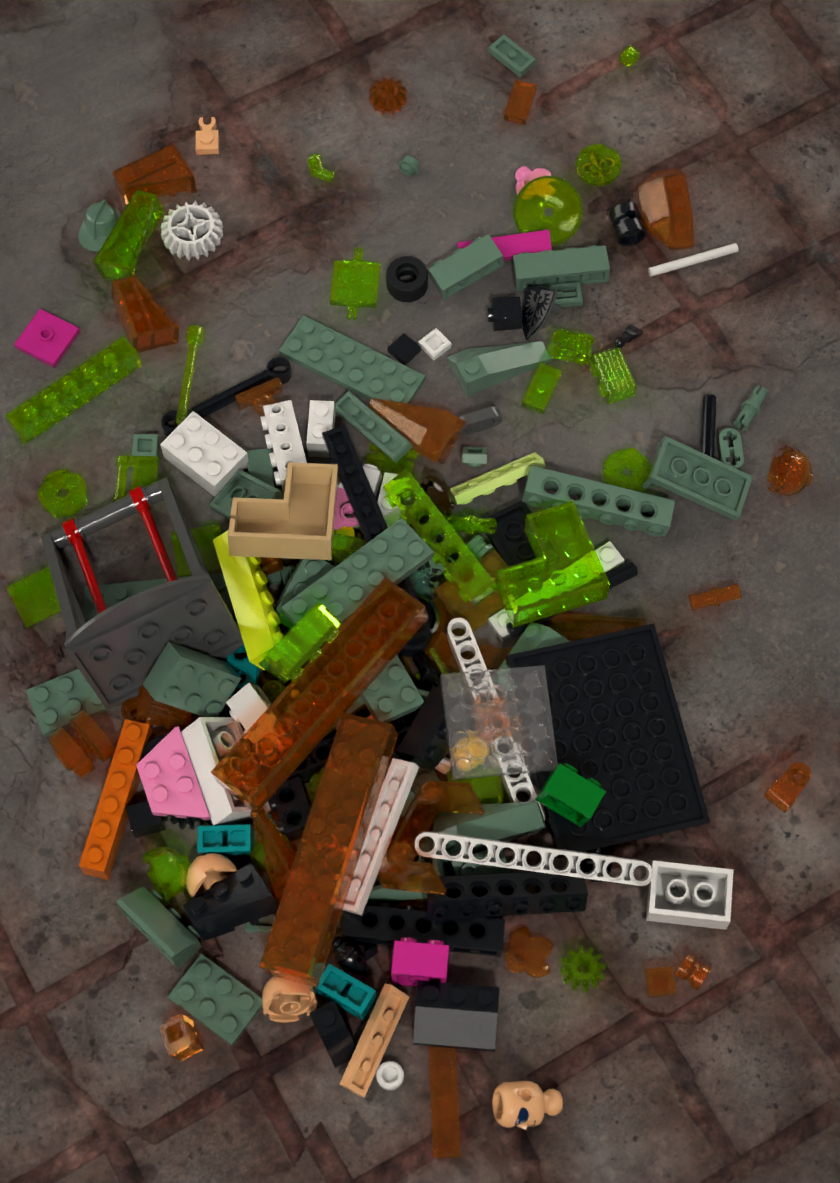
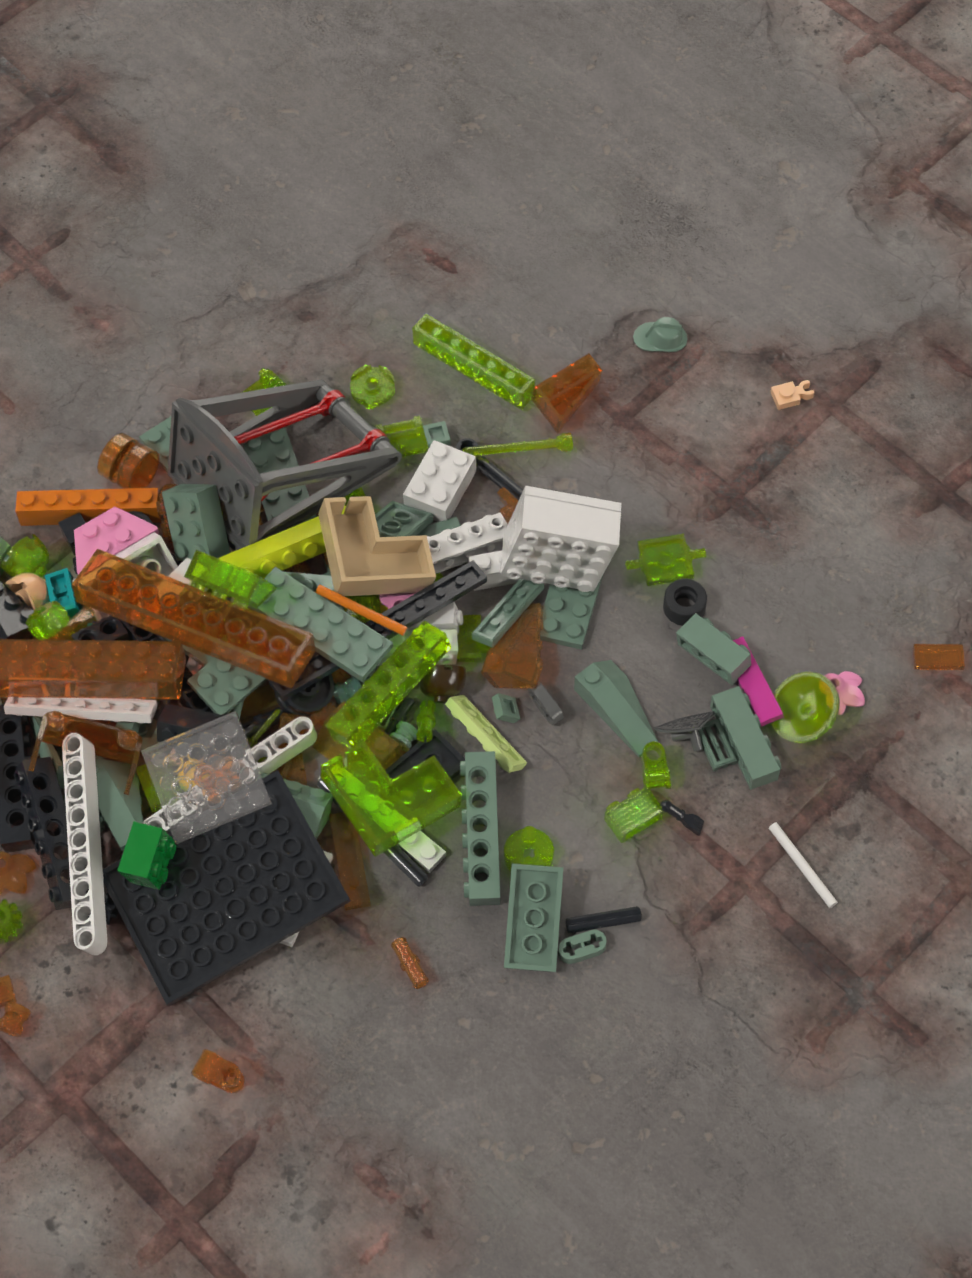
camera: 75 degrees right, 5 degrees down
(47, 338) = (527, 329): dark pink plate -> none
(128, 237) = (649, 357): clear neon green wedge -> none
(156, 173) = (726, 360): clear orange wedge -> none
(206, 229) = (675, 416): white gear -> none
(263, 851) = (47, 620): none -> clear neon green gear
(316, 168) = (787, 494): clear neon green arm -> none
(336, 343) = (560, 539): none -> white piece
(348, 545) = (361, 610): none -> orange bar
(387, 95) = (895, 532): clear orange gear -> none
(404, 349) = (607, 621): black tile -> none
(409, 166) = (819, 572): sand green plate -> none
(435, 344) = (623, 646): white tile -> none
(505, 313) = (674, 699): black brick -> none
(542, 388) = (599, 752): clear neon green plate -> none
(598, 165) = (888, 748): clear neon green tile -> none
(627, 224) = (820, 787): black wheel -> none
(668, 208) = (857, 824): clear orange wedge -> none
(690, 895) = (85, 997): white brick -> none
(750, 408) = (637, 955): sand green pin -> none
(790, 472) = (567, 1007): clear orange cylinder -> none

